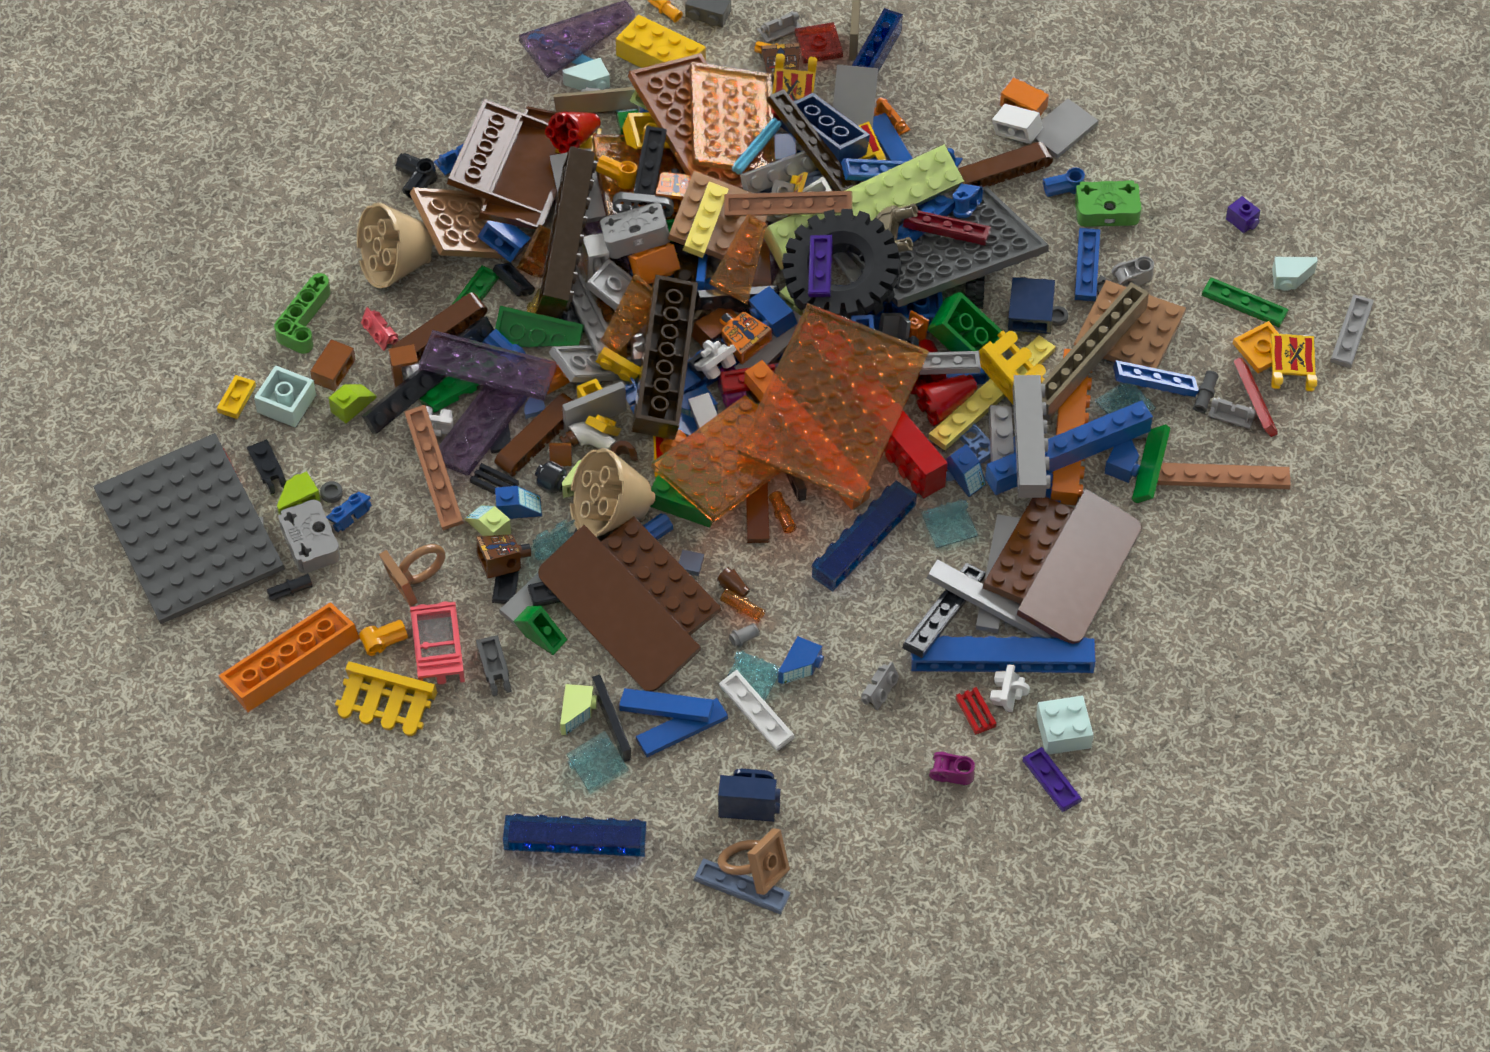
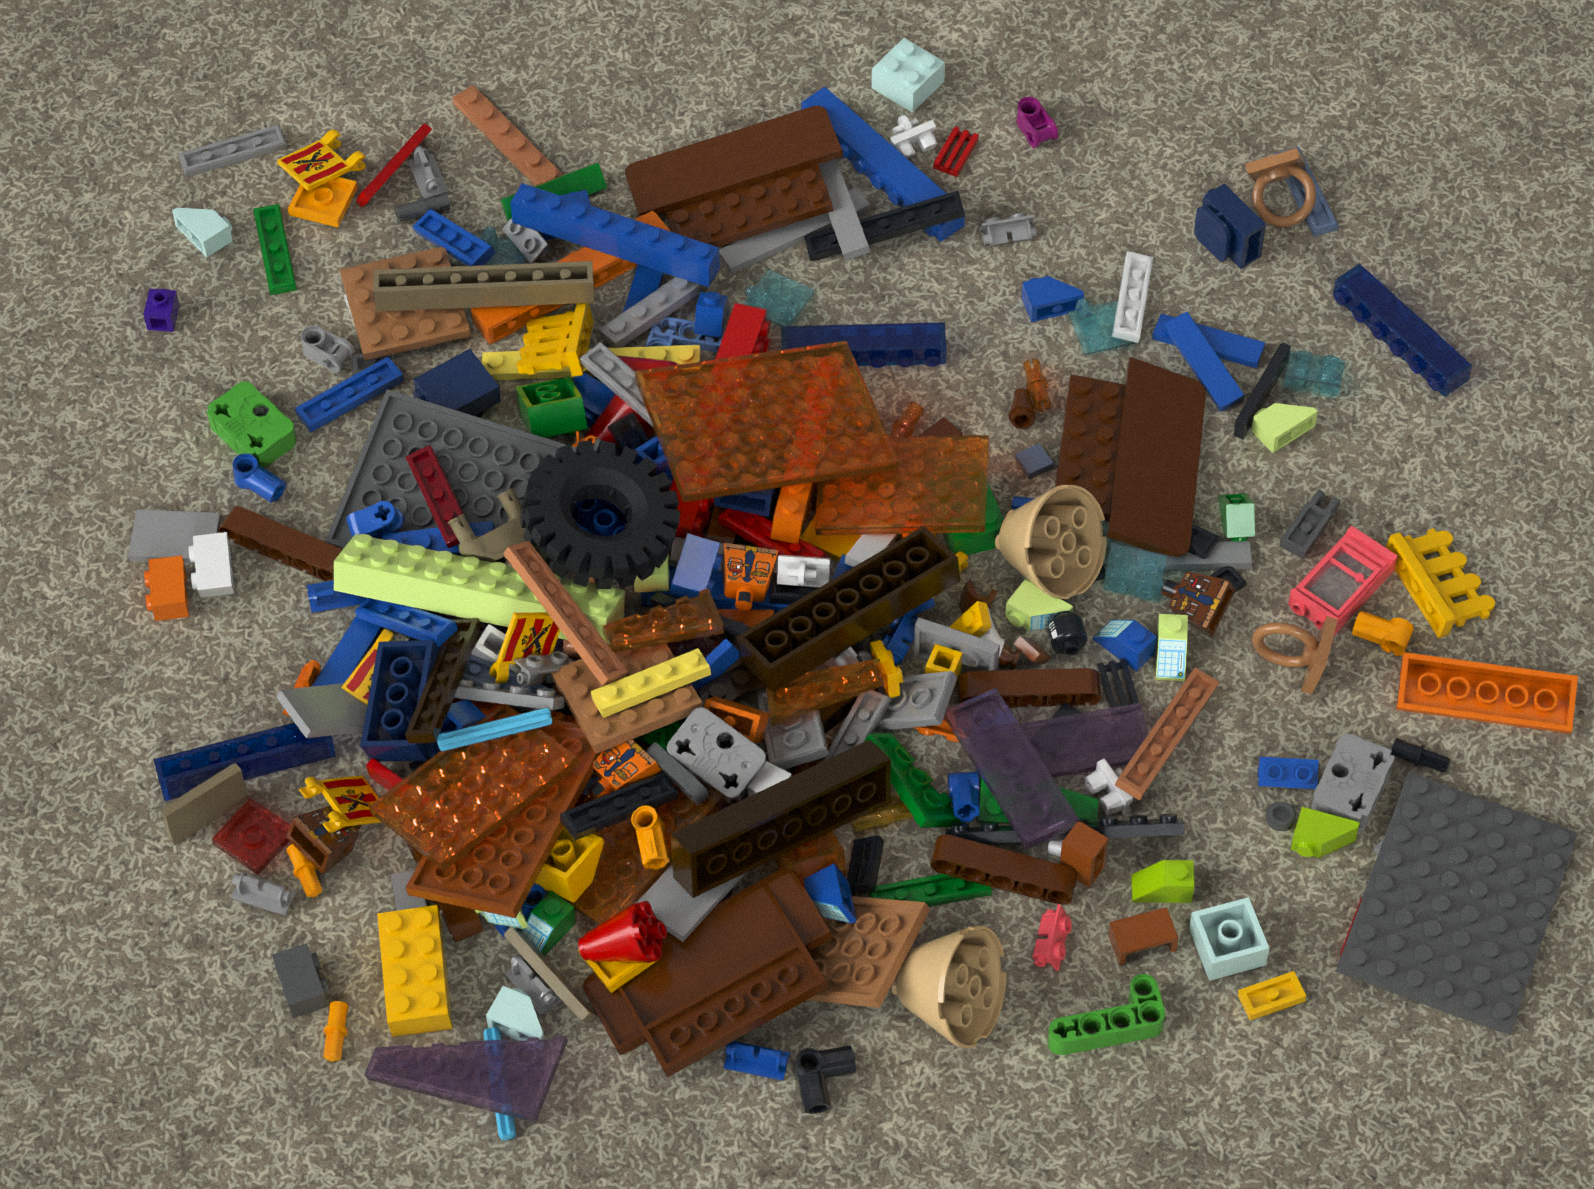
camera: 130 degrees left, 0 degrees up
(266, 464) = (1314, 899): black hinge -> none
(738, 637) = (1066, 362): light grey pin -> none
(820, 266) = (627, 516): dark purple tile -> none
(1030, 436) = (651, 239): light grey brick -> none
(1052, 779) = (965, 59): dark purple tile -> none

